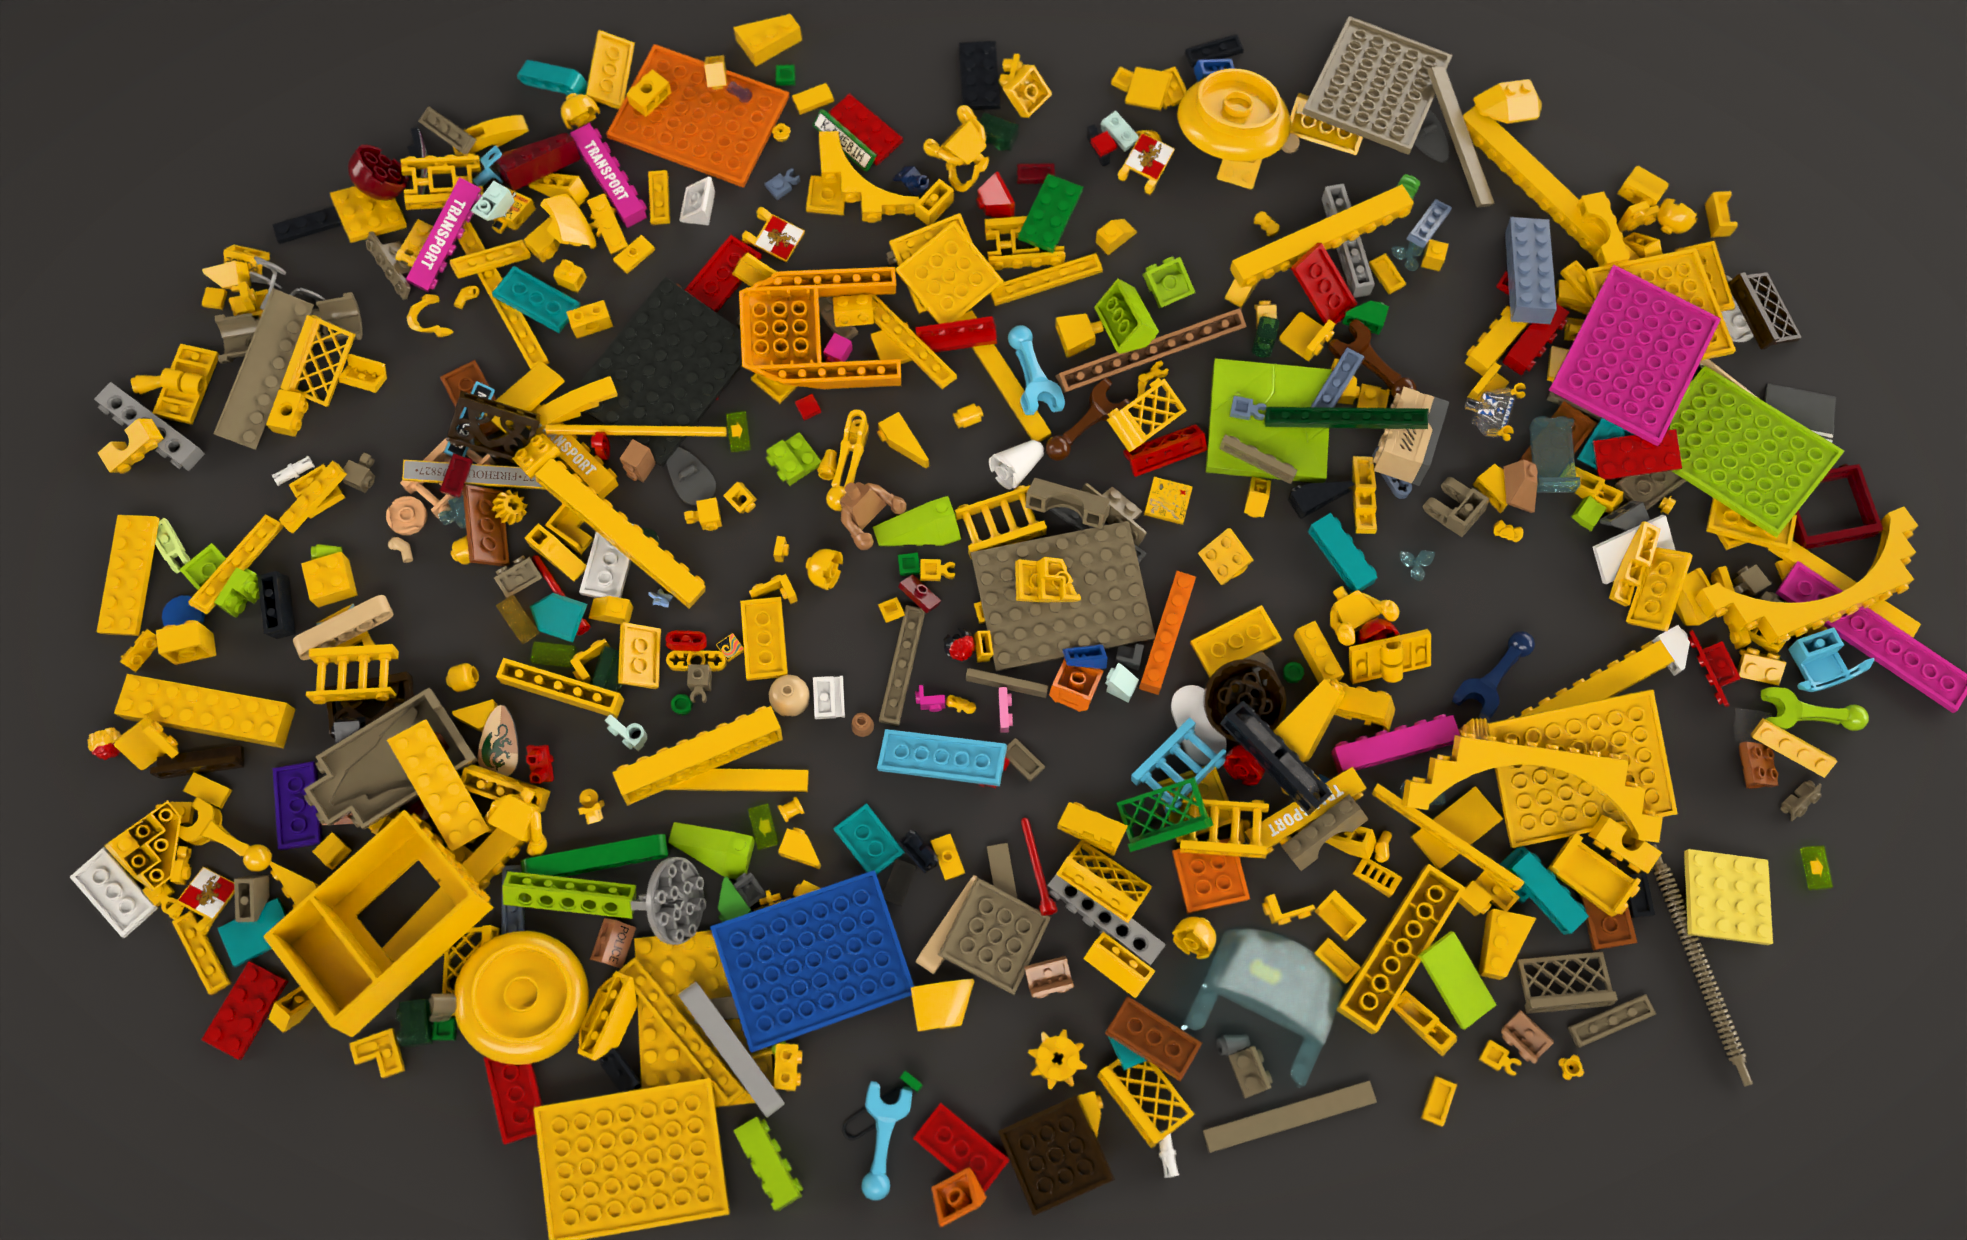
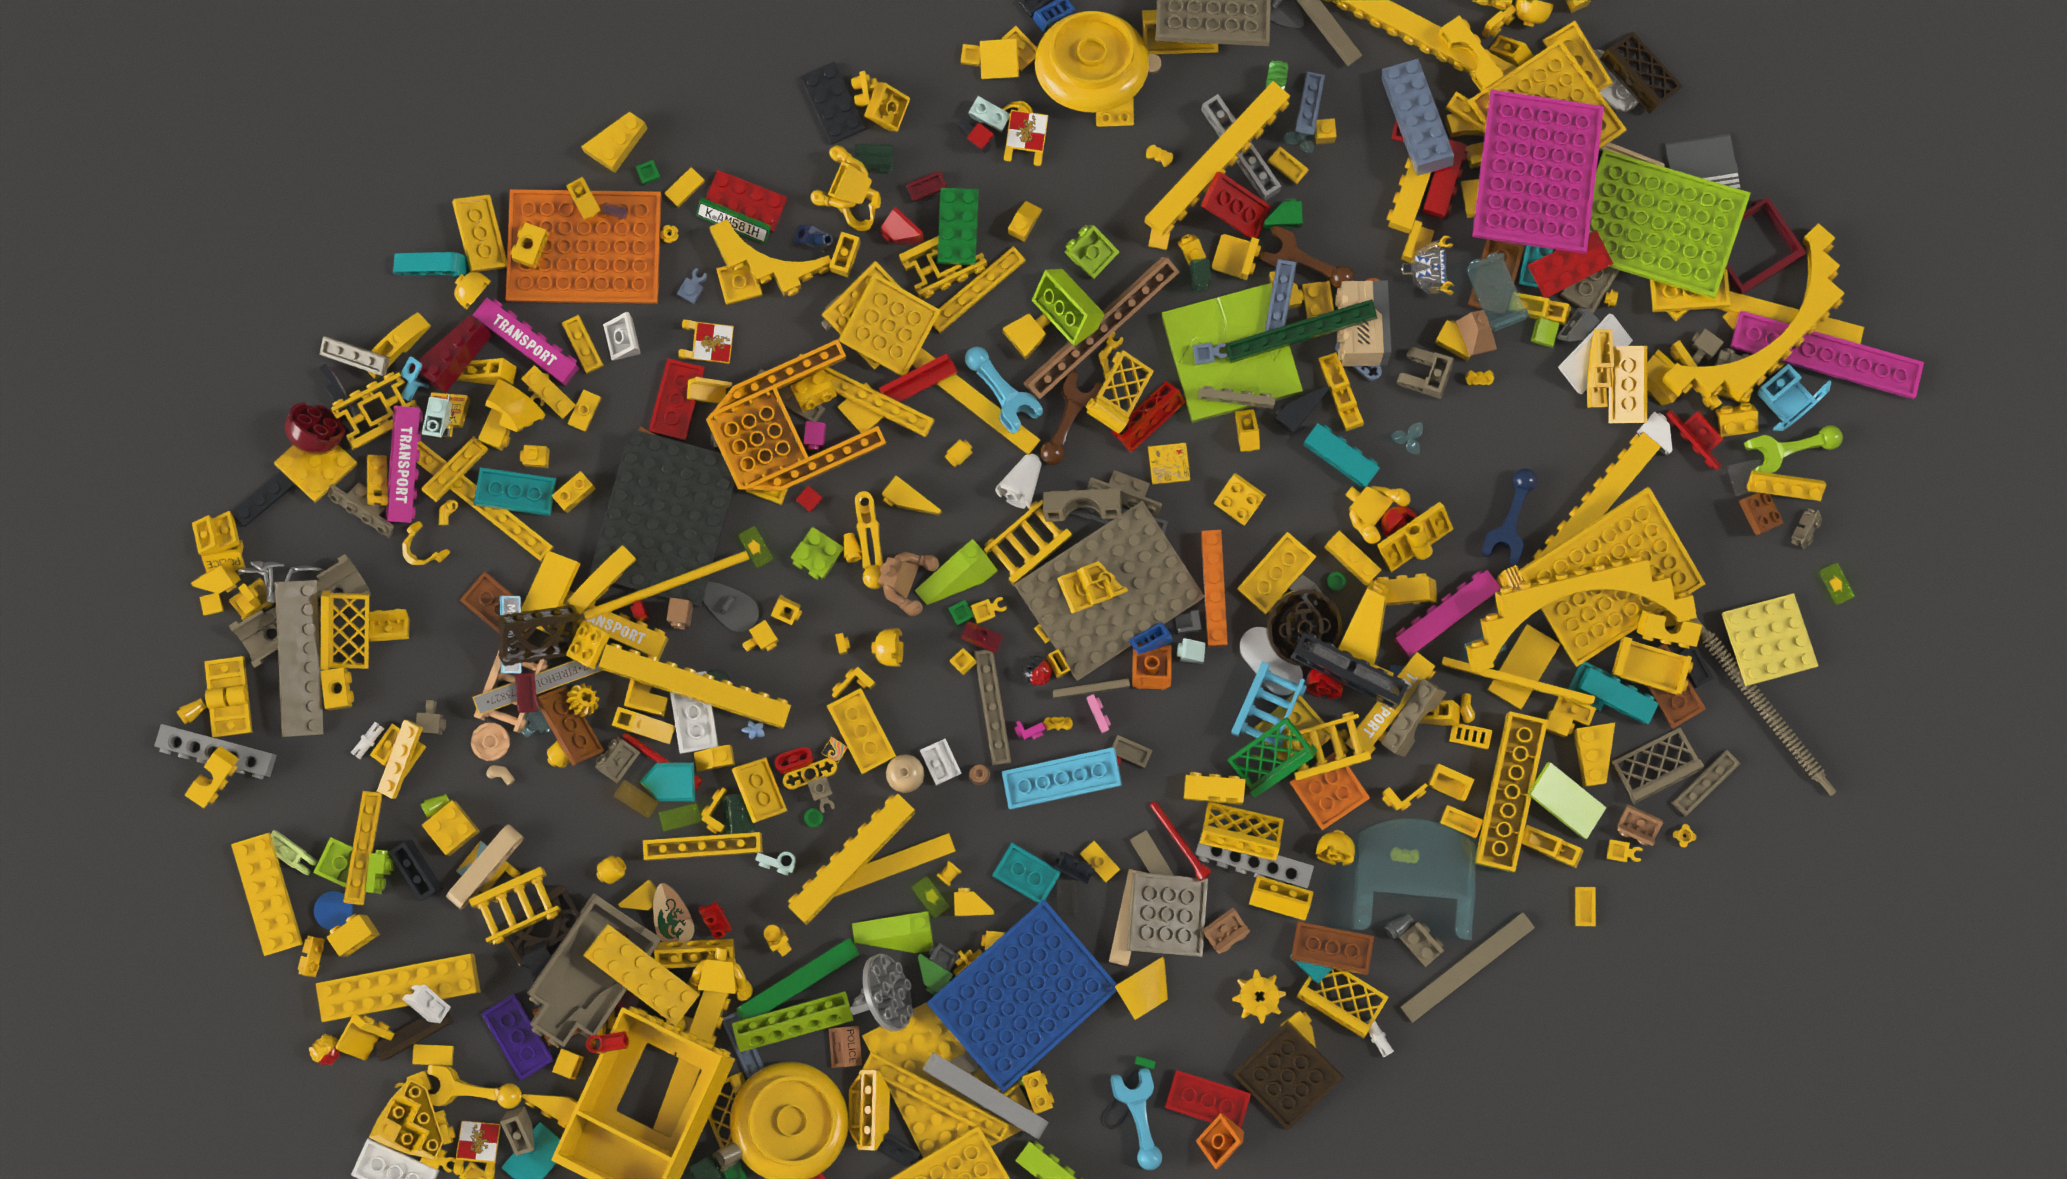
camera: 20 degrees left, 10 degrees up
(221, 733) = (427, 1003): none -> white hinge
(248, 238) = (215, 533): none -> yellow slope
(371, 837) = (608, 1042): none -> red piece

